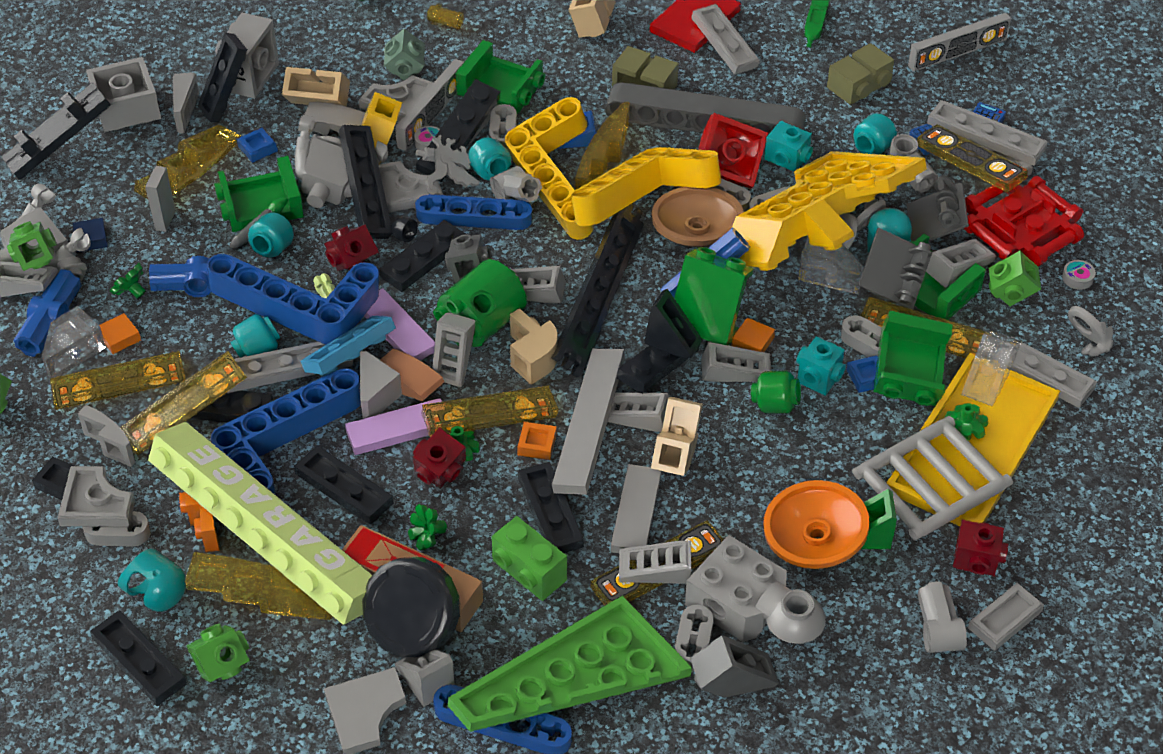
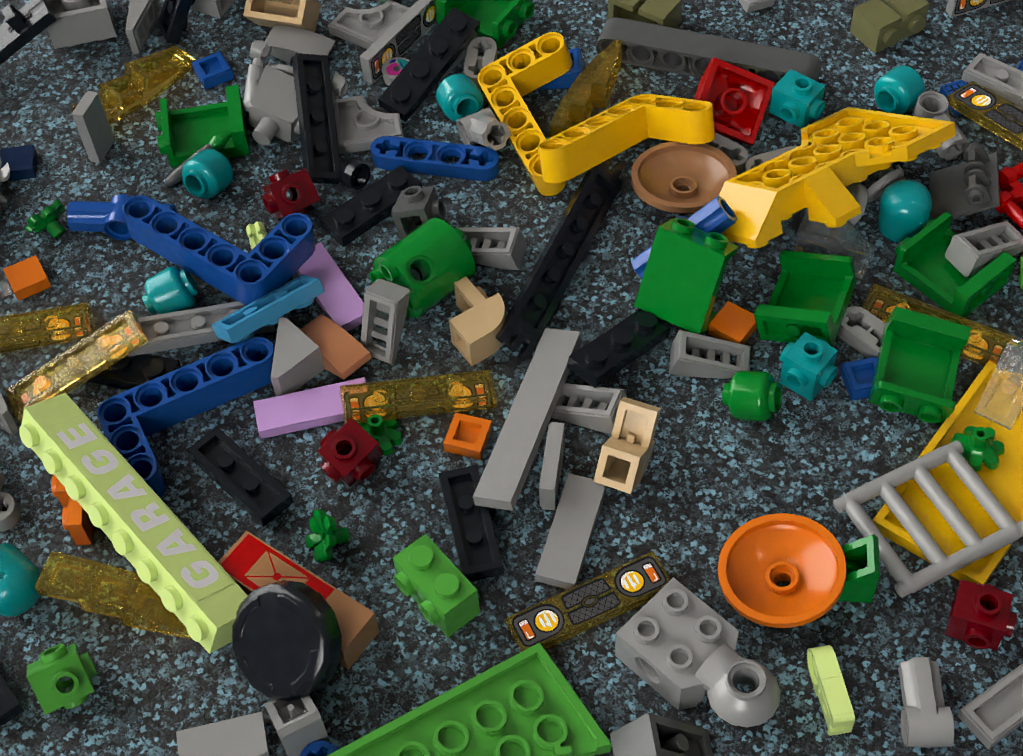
camera: 10 degrees right, 5 degrees up
(381, 117) = (345, 48): yellow slope -> none
(445, 162) = (410, 99): light grey piece -> none
(613, 459) = (552, 466): none -> light grey tile
(666, 573) = (594, 619): light grey slope -> none
(670, 328) = (634, 311): black slope -> none
(687, 636) = (610, 695): light grey beam -> none
(815, 307) = (807, 297): none -> green panel
(865, 614) = (830, 689): none -> yellowish green piece
(895, 268) = (908, 253): dark grey hinge -> none

